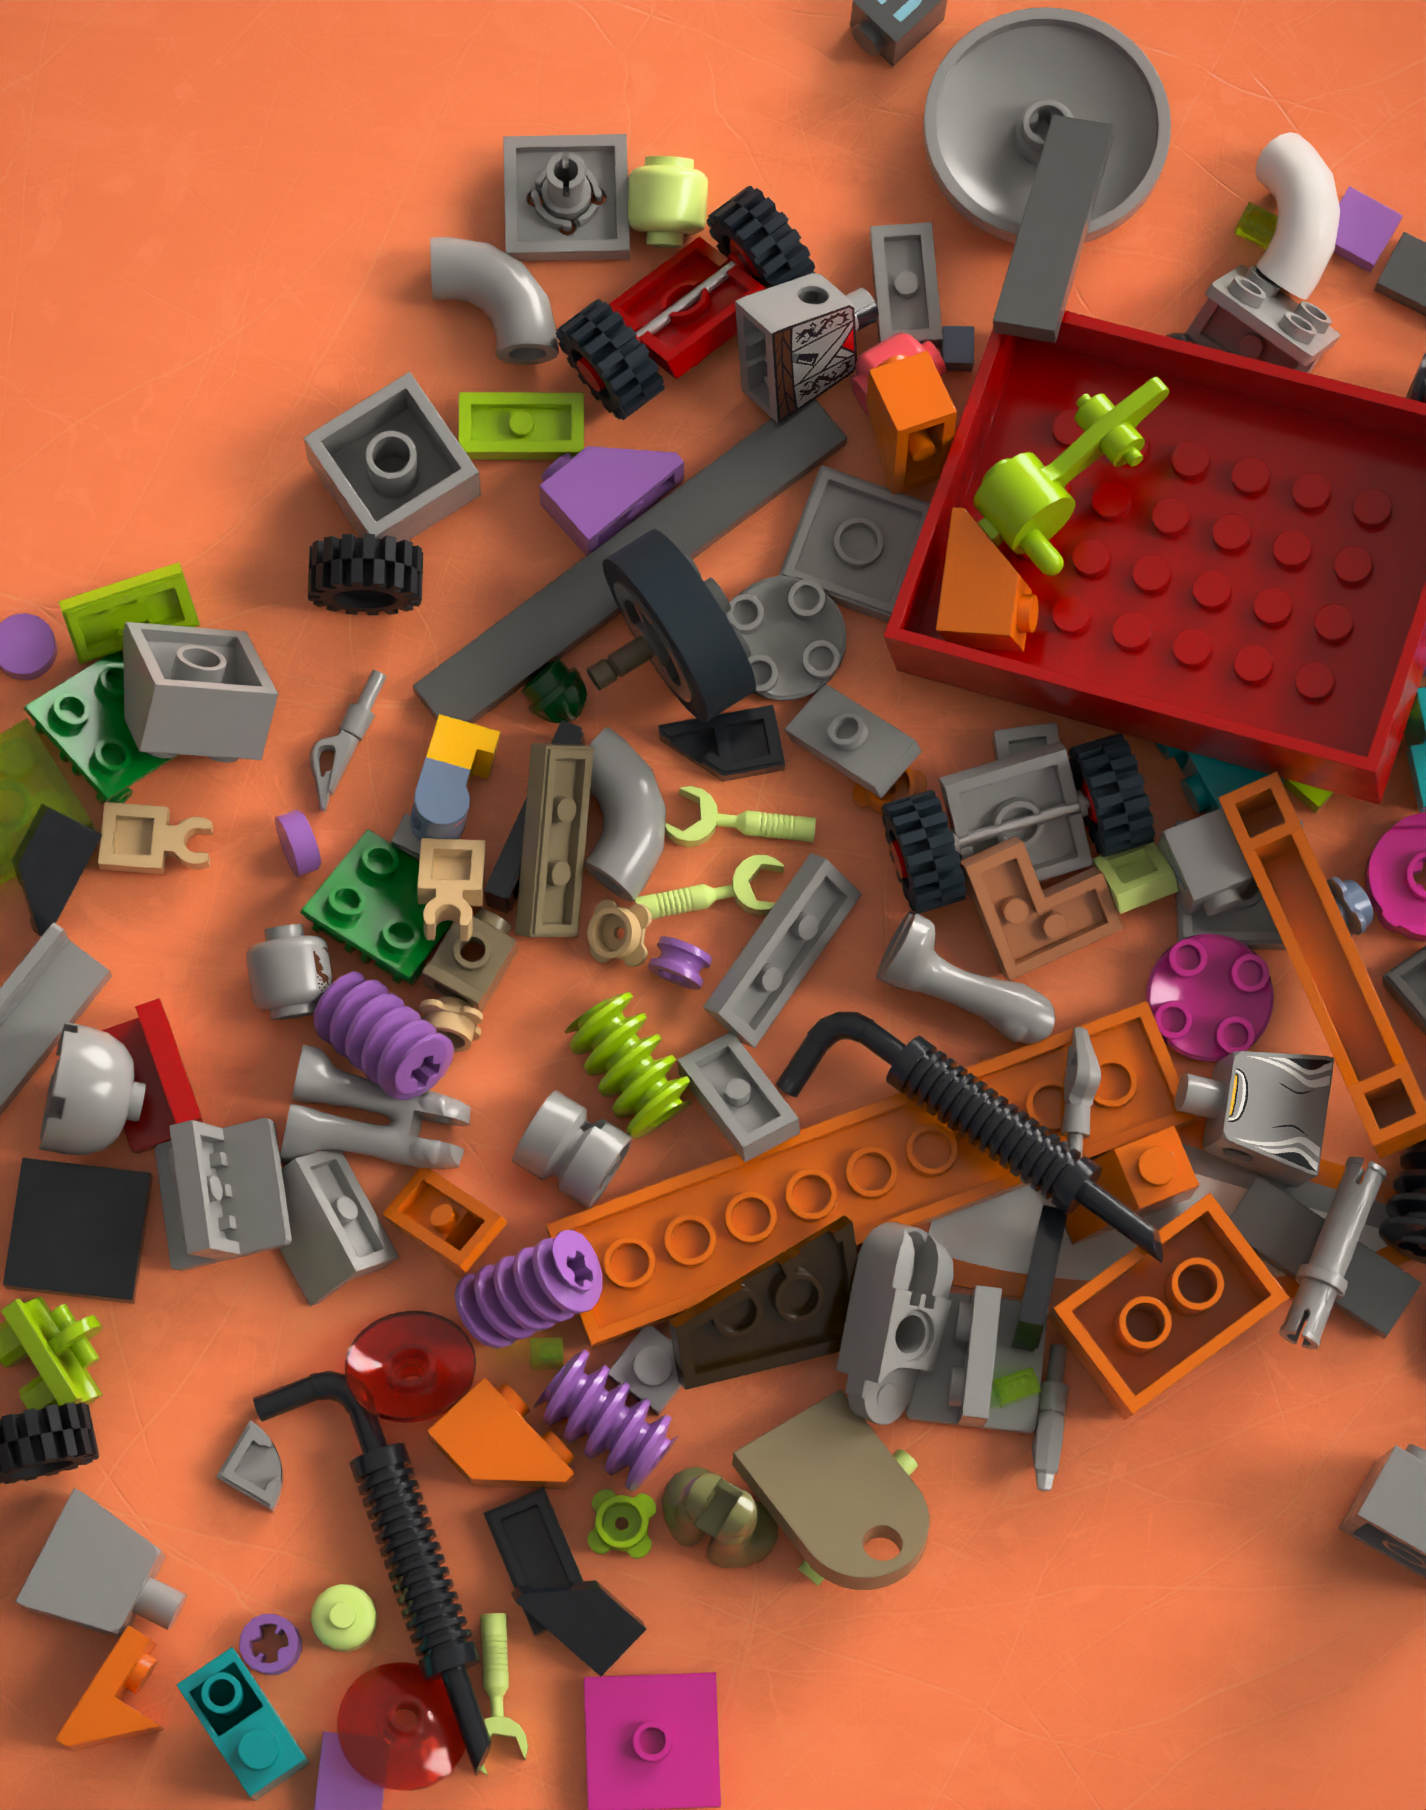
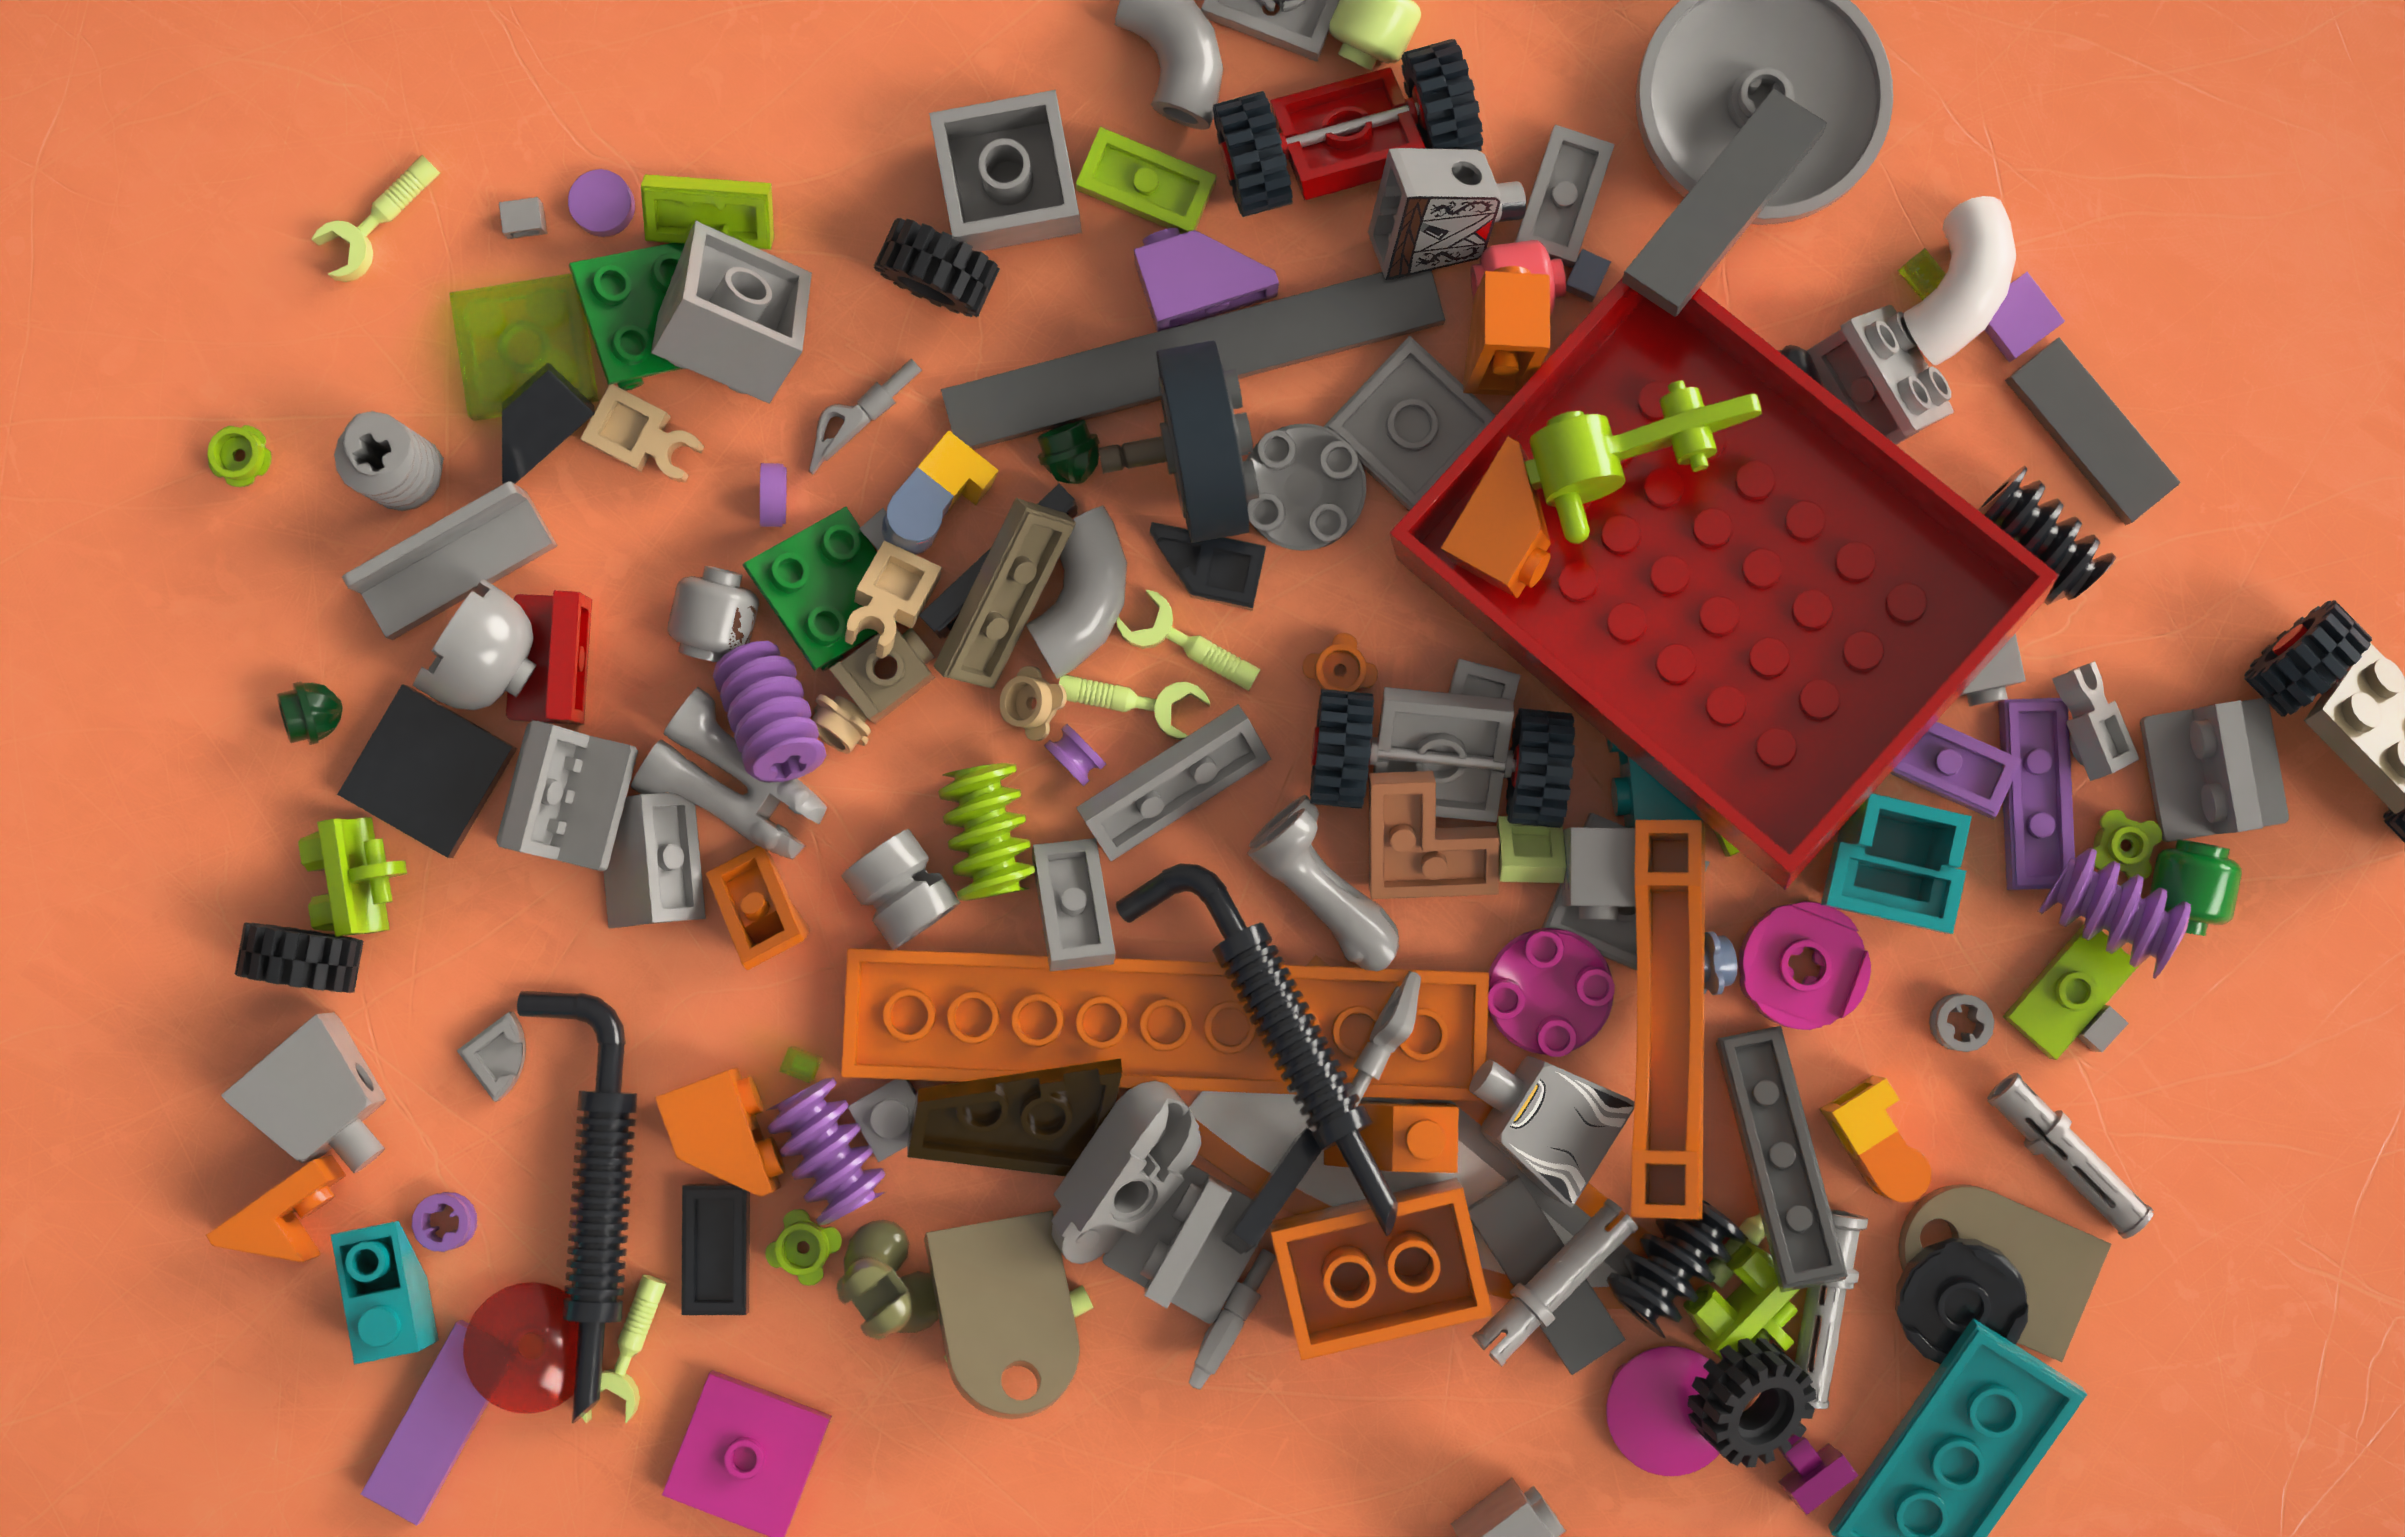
camera: 20 degrees right, 10 degrees up
(344, 1618) = (519, 1226): yellowish green piece -> none
(406, 1347) = (669, 1001): clear red dish -> none
(530, 1290) = (803, 1007): medium lavender piece -> none
(584, 1620) = (728, 1323): black tile -> none
(853, 740) = (1324, 613): light grey plate -> none
(1016, 1387) = (1211, 1280): clear neon green piece -> none

